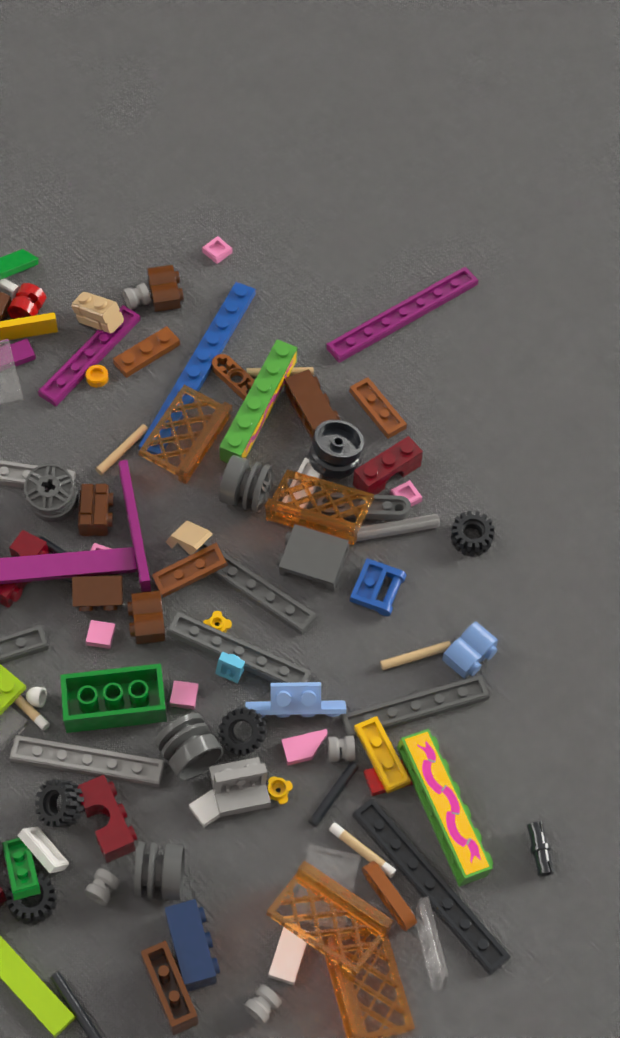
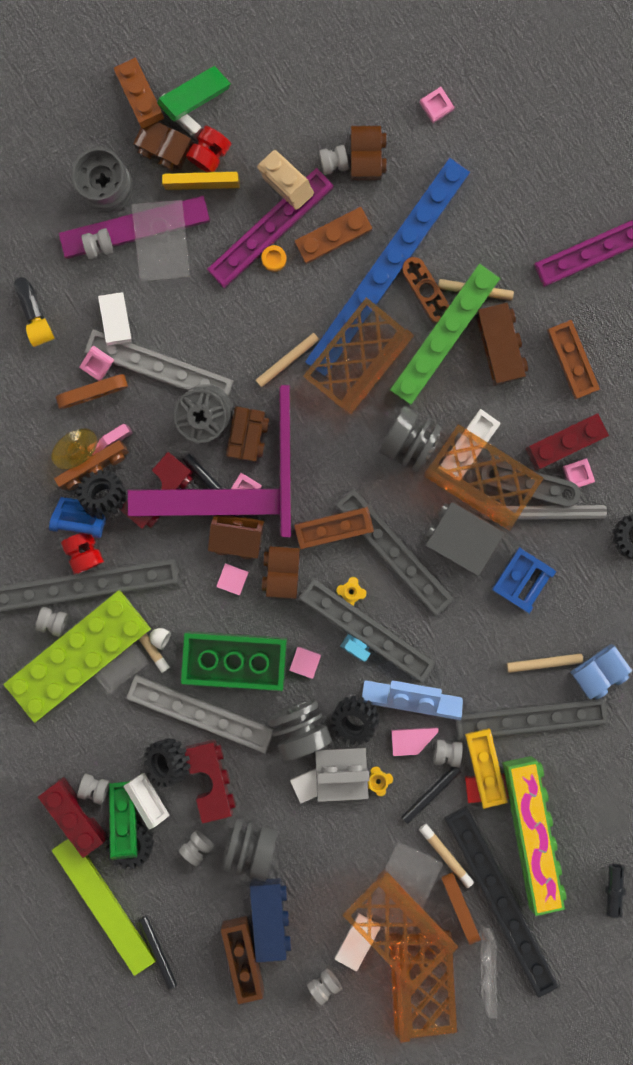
camera: 10 degrees right, 30 degrees up
(189, 537) = (339, 492): tan slope -> none
(336, 449) = (516, 411): black wheel -> none

